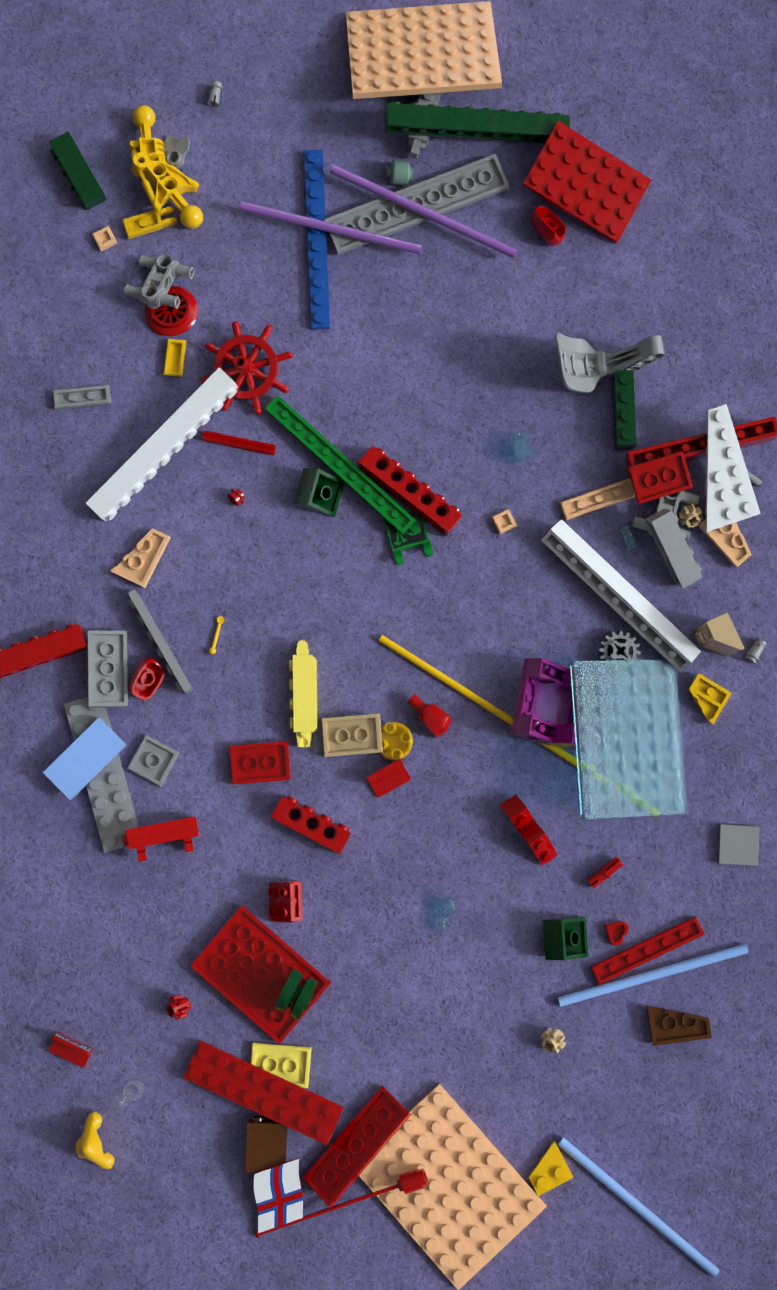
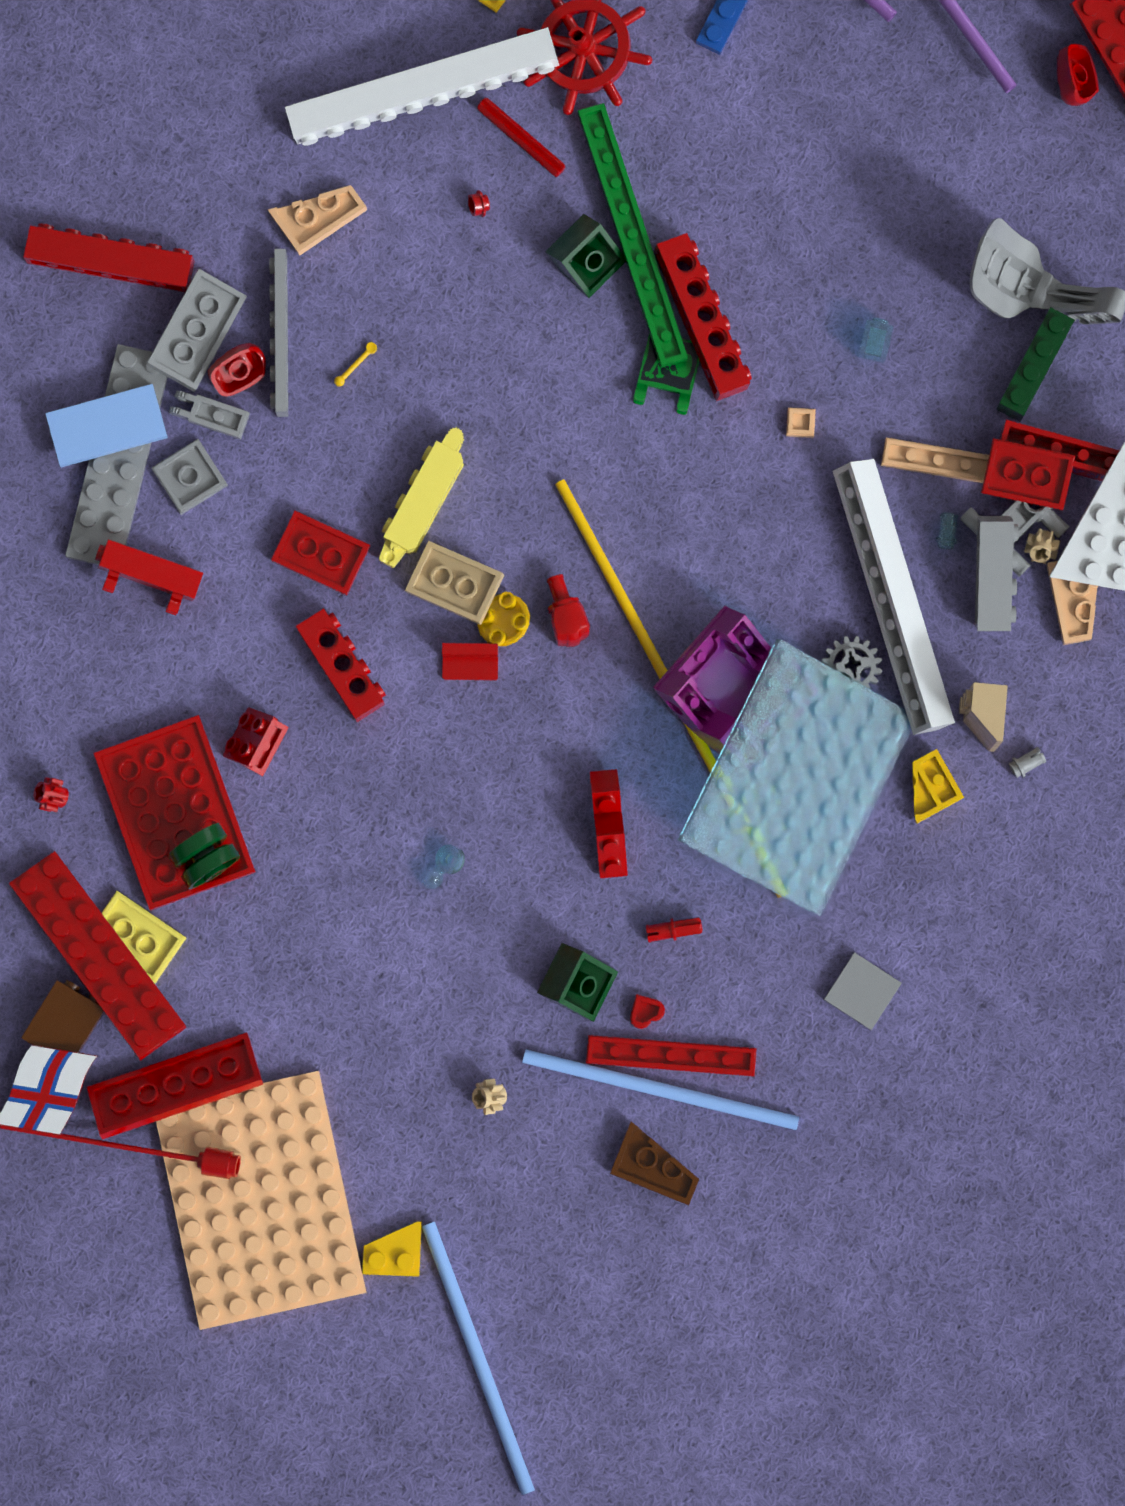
camera: 30 degrees right, 0 degrees up
(146, 715) = (212, 414): none -> light grey hinge

